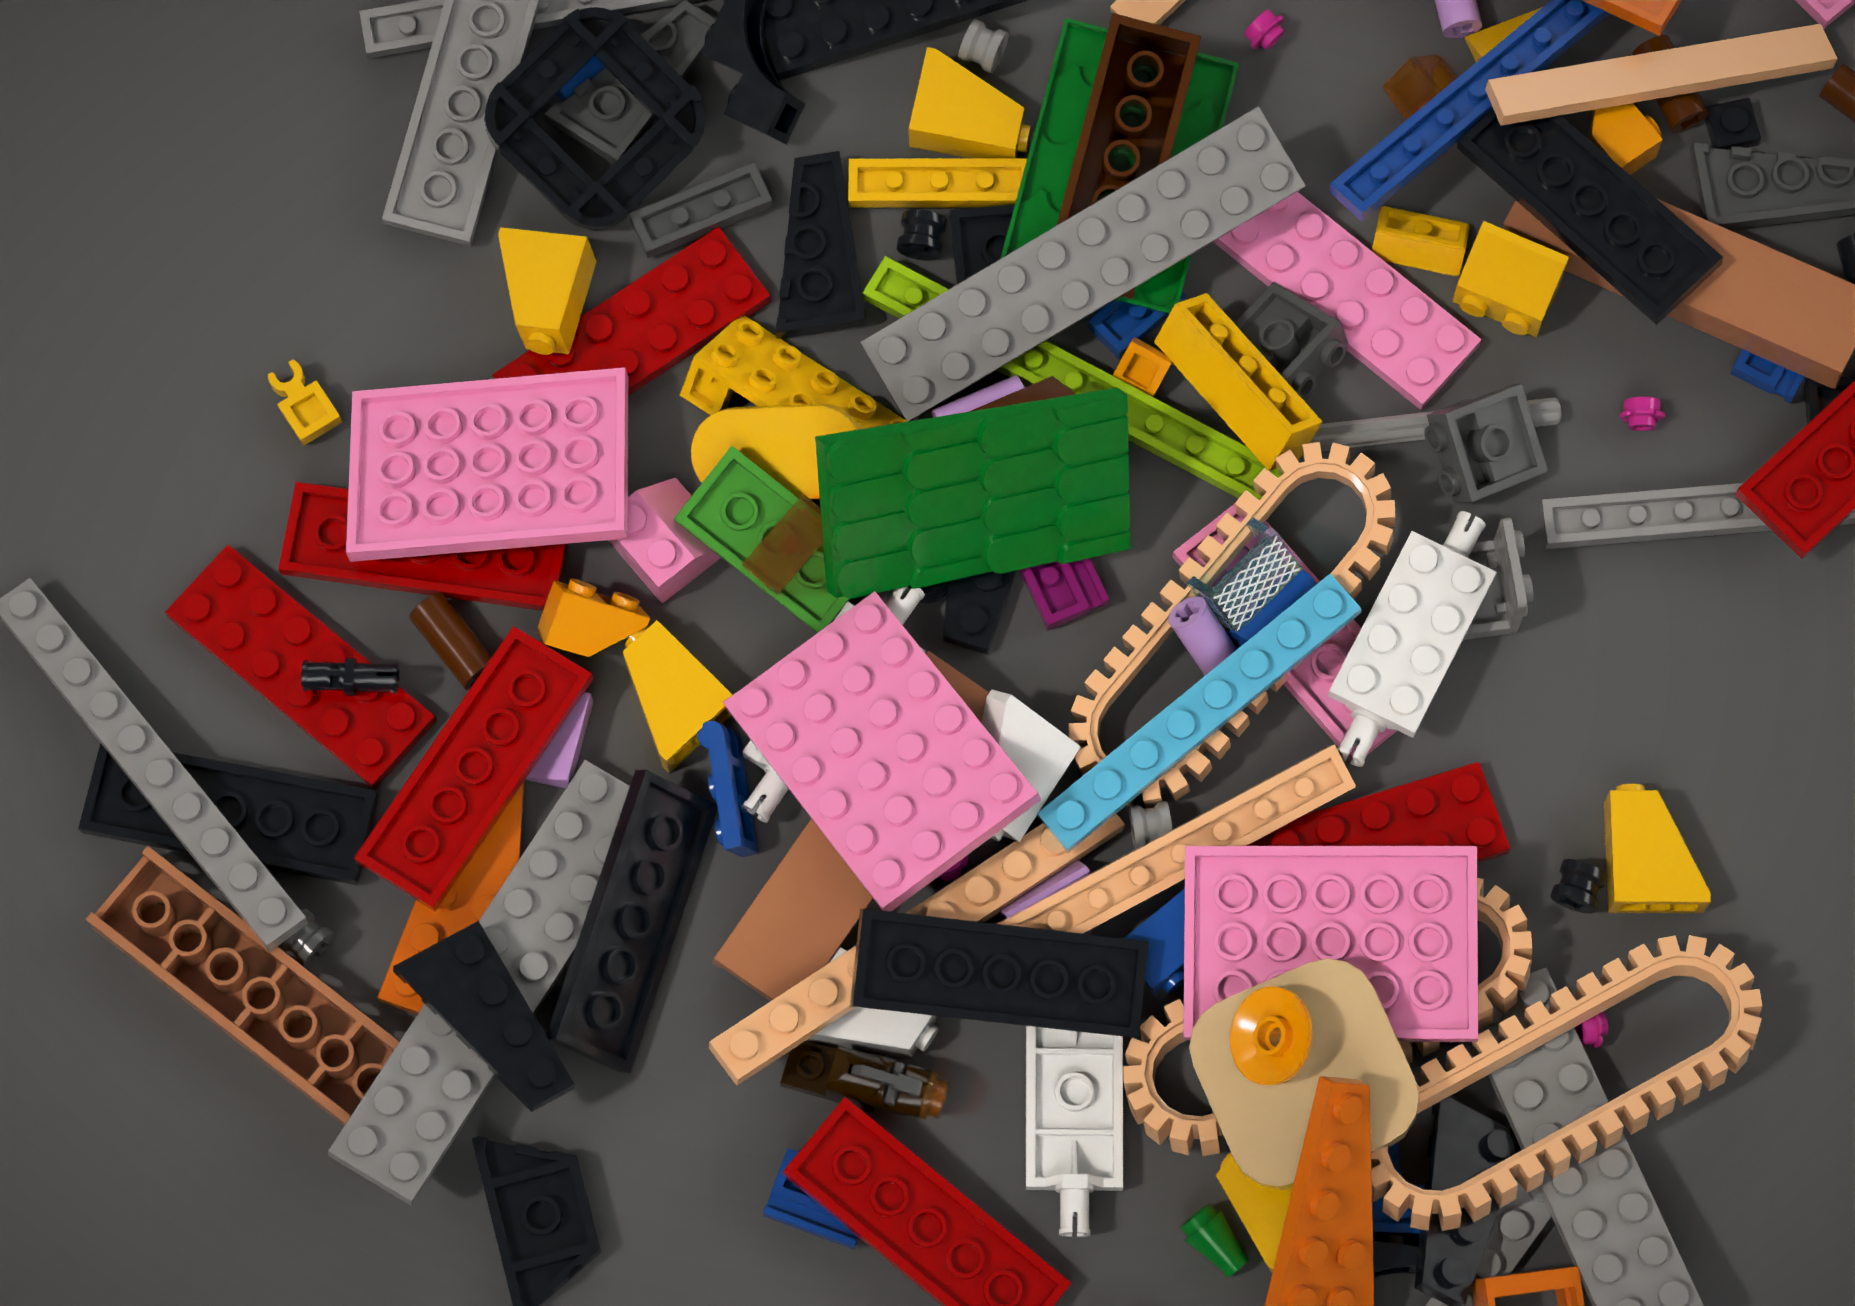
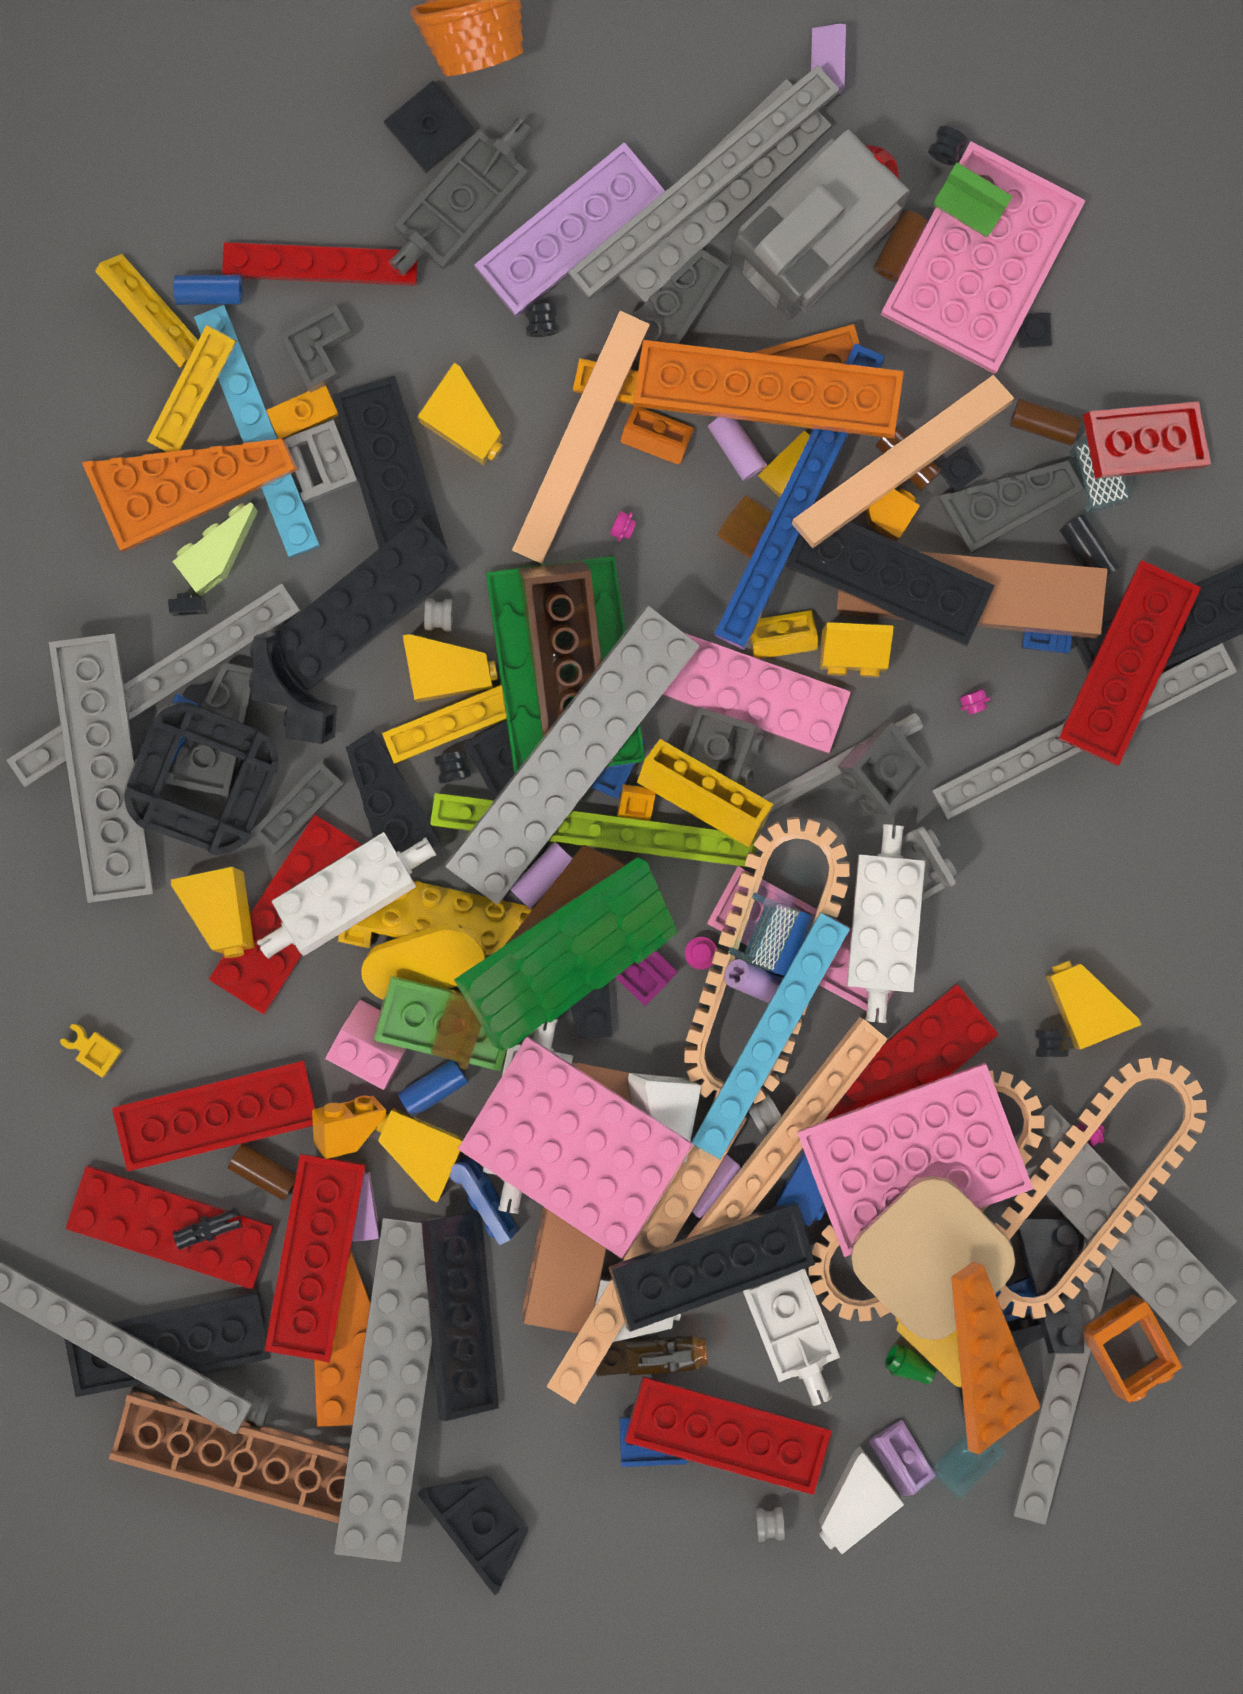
camera: 30 degrees left, 15 degrees up
(481, 1002) = (392, 1419): black wing -> none
(488, 465) = (235, 1051): bright pink plate -> none
(714, 326) = (344, 894): none -> white plate
(723, 621) = (433, 1088): none -> blue piece
(1145, 588) = (700, 952): none -> dark pink plate
(1257, 1033) = (906, 1251): light orange dish -> none

